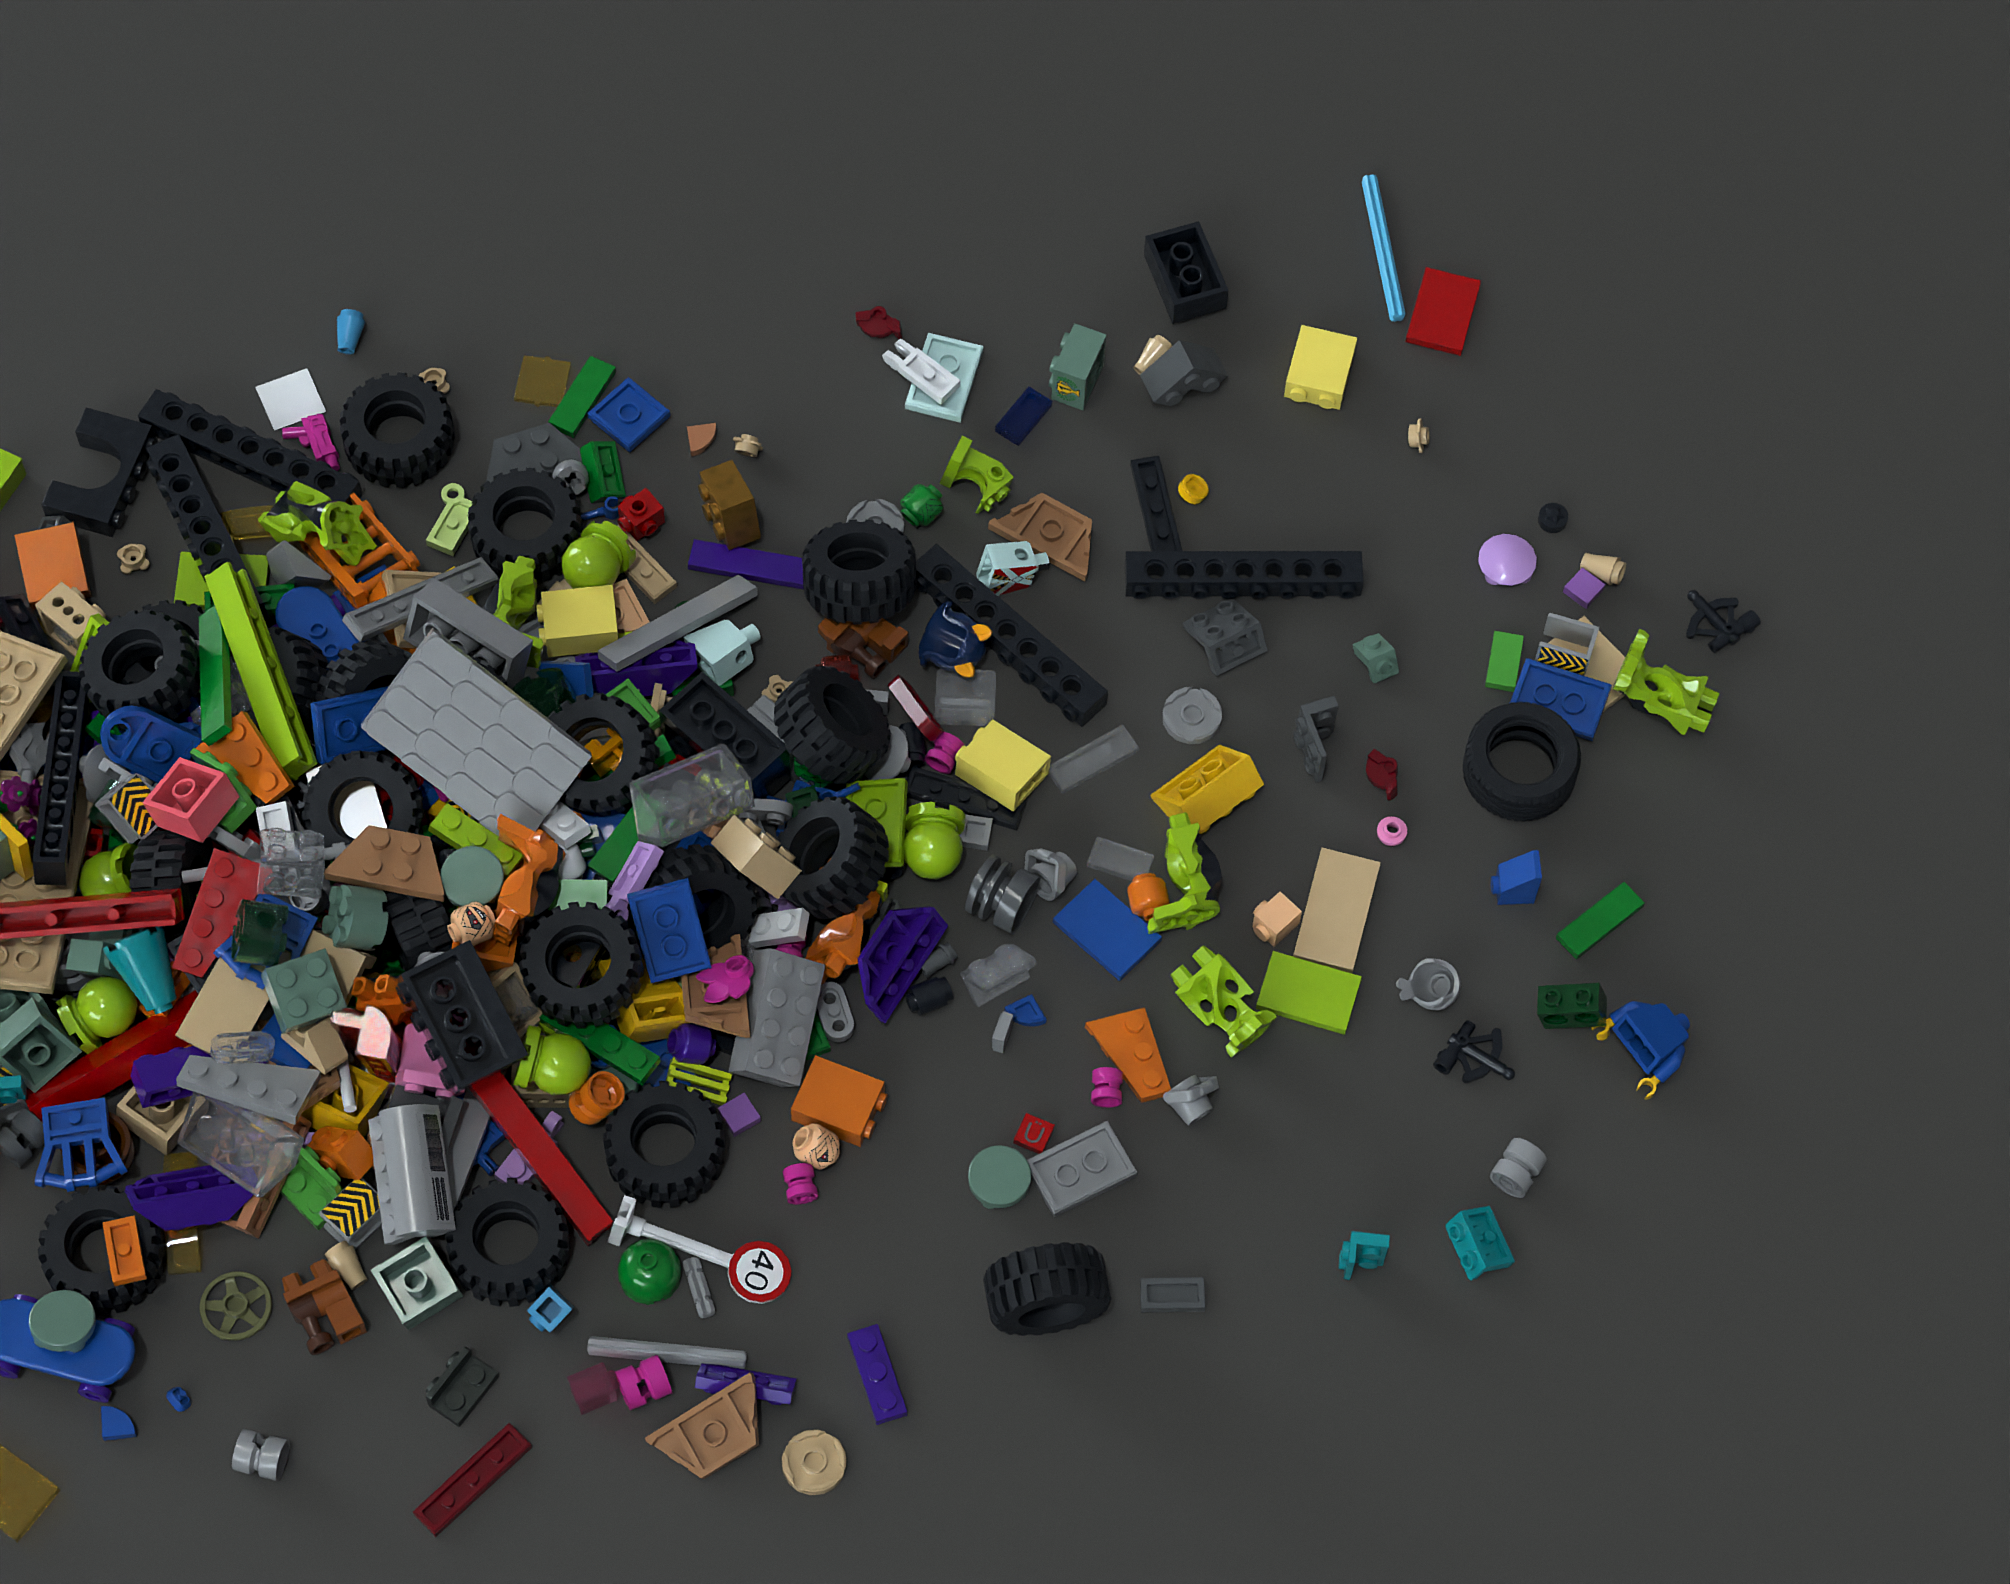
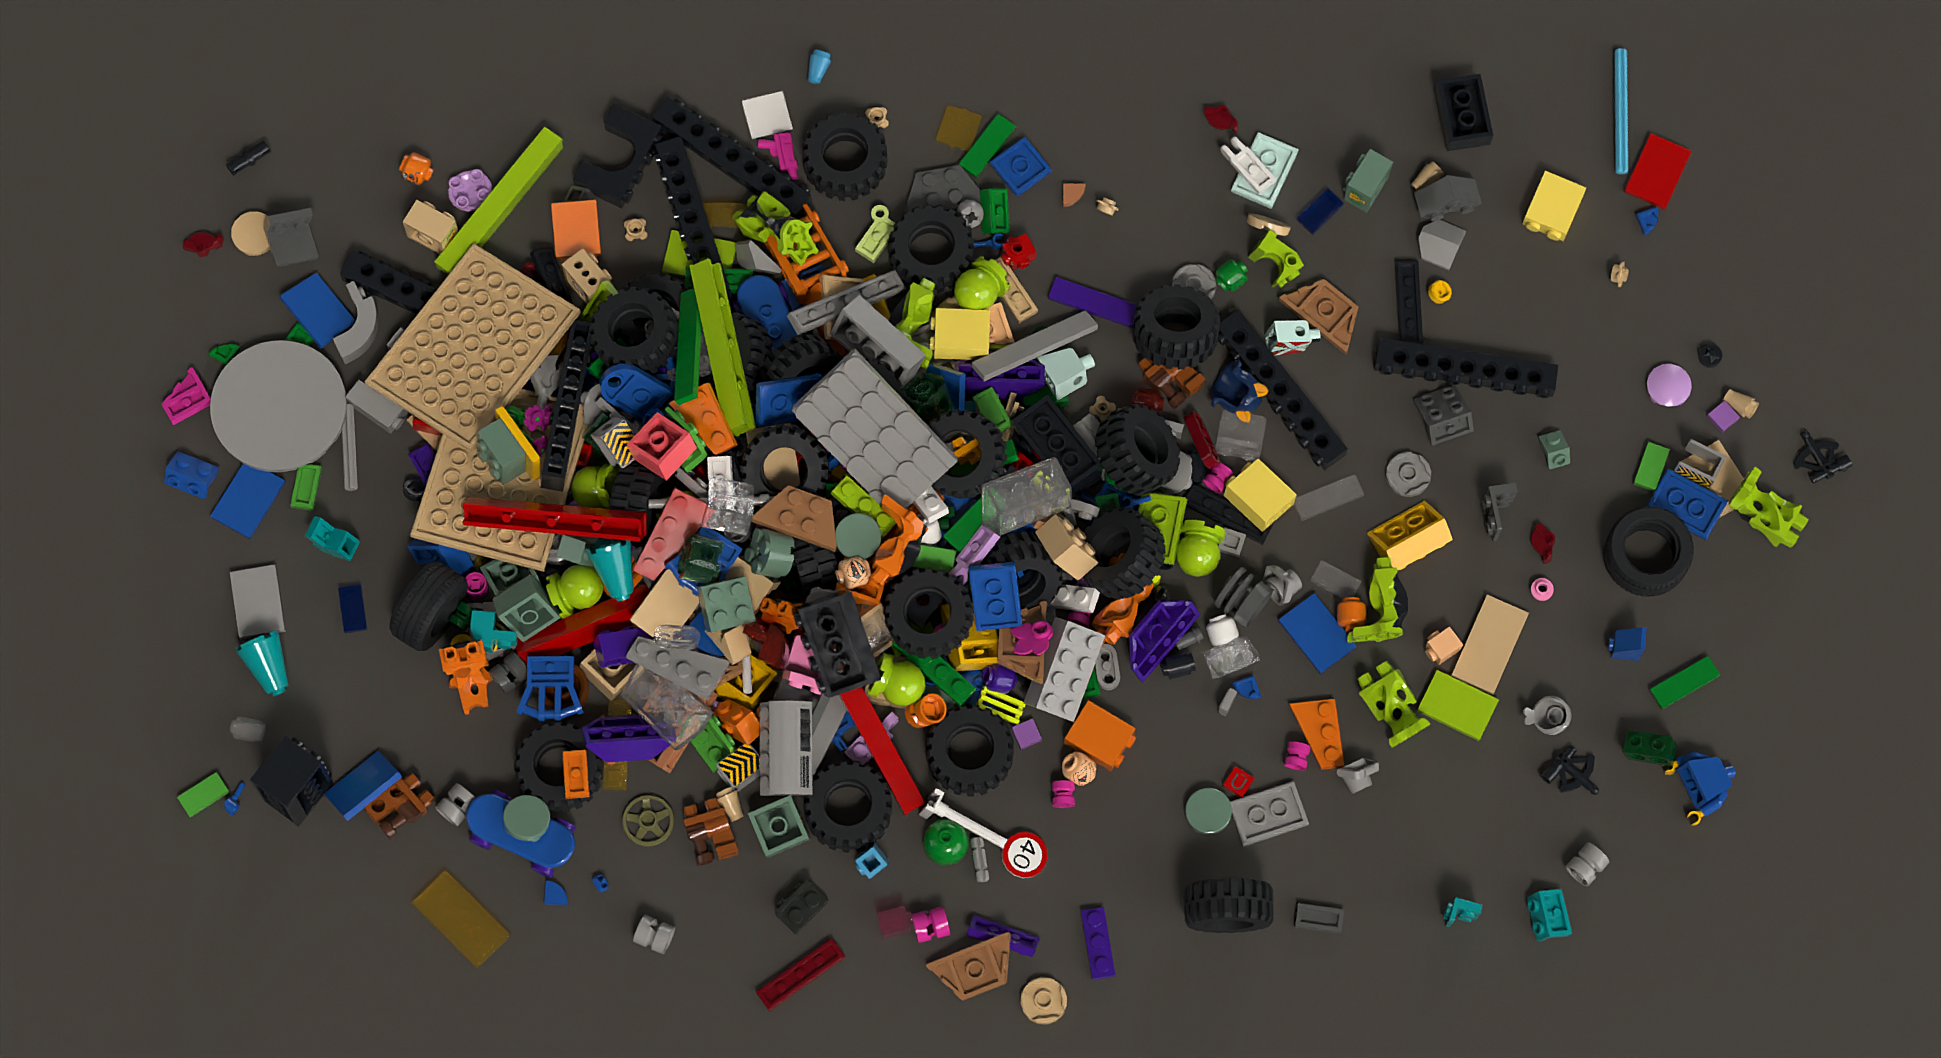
camera: 10 degrees right, 10 degrees up
(666, 1352) = (949, 904): light grey axle -> none
(729, 505) = (1086, 256): pearl gold brick -> none
(952, 435) = (1268, 224): none -> tan tile
(979, 940) = (1221, 630): none -> white head
(1183, 432) = (1440, 243): none -> light grey slope
(1441, 369) = (1647, 220): none -> blue tile

